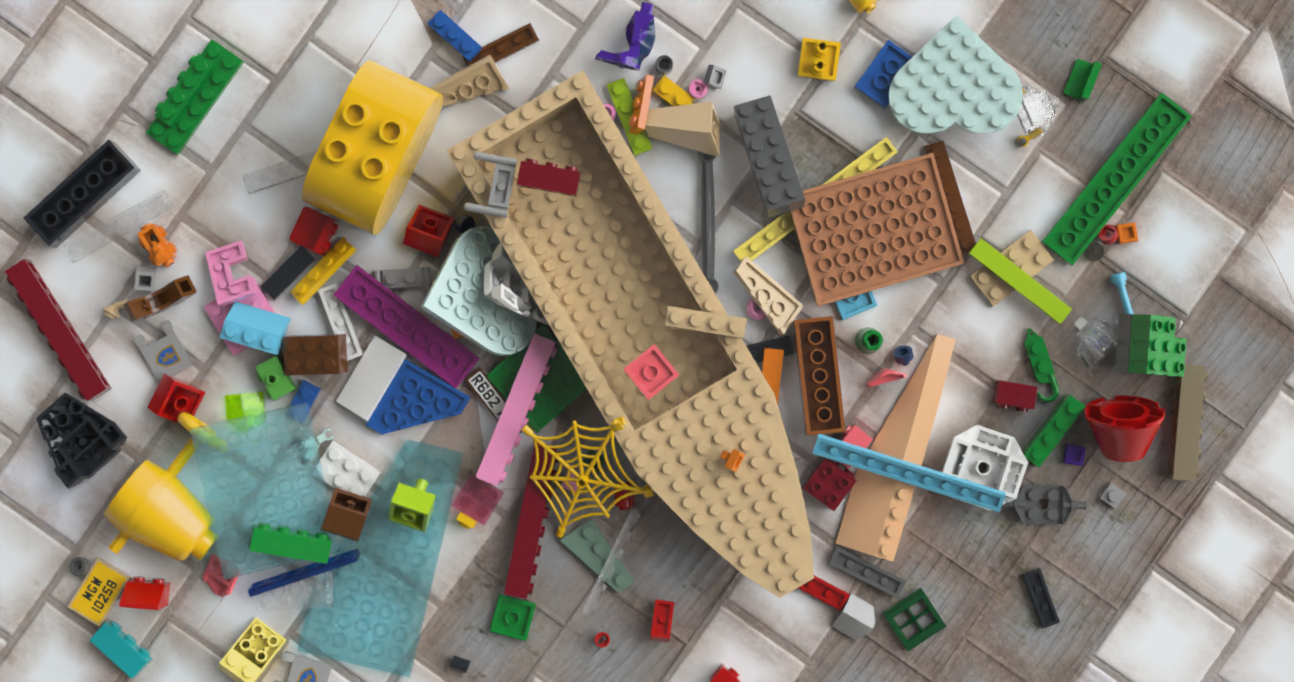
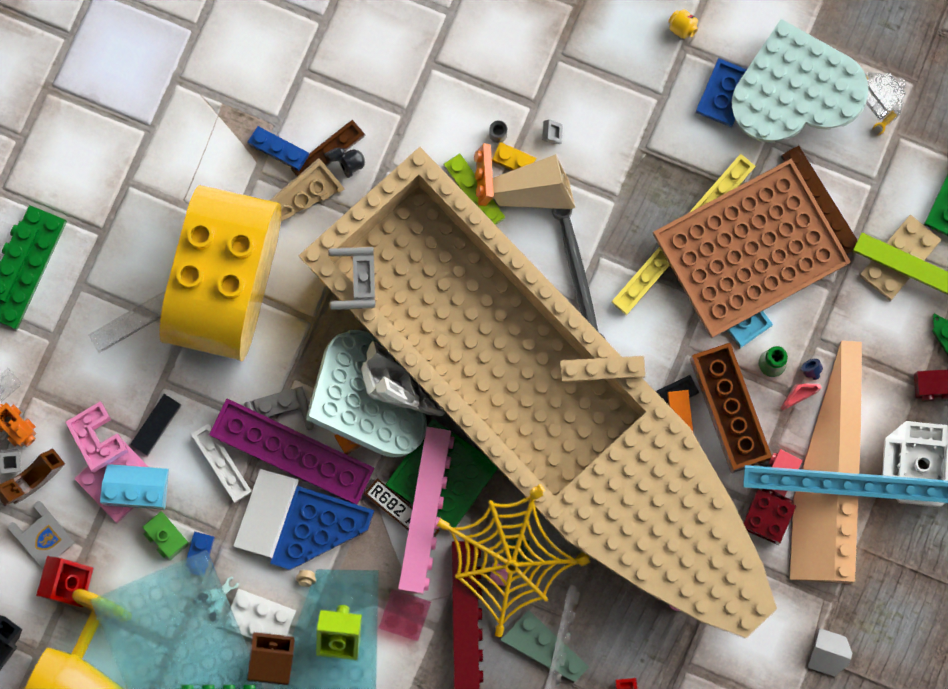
camera: 10 degrees left, 10 degrees down
(244, 404) = (136, 568): clear neon green slope -> none
(314, 230) = (175, 375): red bracket -> none
(315, 354) = (202, 500): reddish brown brick -> none
(323, 270) = (192, 414): yellow plate -> none
(395, 445) = (306, 578): none -> tan plate
(428, 230) = (293, 349): red slope -> none
(464, 223) = (328, 332): dark blue tile -> none
(466, 521) = (397, 641): yellow plate -> none
(519, 63) = (349, 161): none -> black piece
(548, 177) = (410, 258): dark red brick -> none
(627, 502) = (561, 582): red brick -> none
(640, 37) = (468, 110): dark purple hips -> none
(651, 372) = (558, 431): coral plate -> none
(698, 89) = (538, 148): bright pink tile -> none
(733, 459) = (664, 502): orange tile -> none
(753, 312) = (656, 358): bright pink plate -> none
(769, 156) = (626, 197): dark grey brick -> none
(772, 298) = (659, 337): tan wing -> none
(819, 59) = (653, 92): yellow plate -> none
(825, 592) = (788, 632): red tile -> none
(867, 572) = (830, 601): dark grey plate -> none
(924, 633) = (905, 654): dark green piece -> none
(1082, 80) = (923, 56): green panel -> none

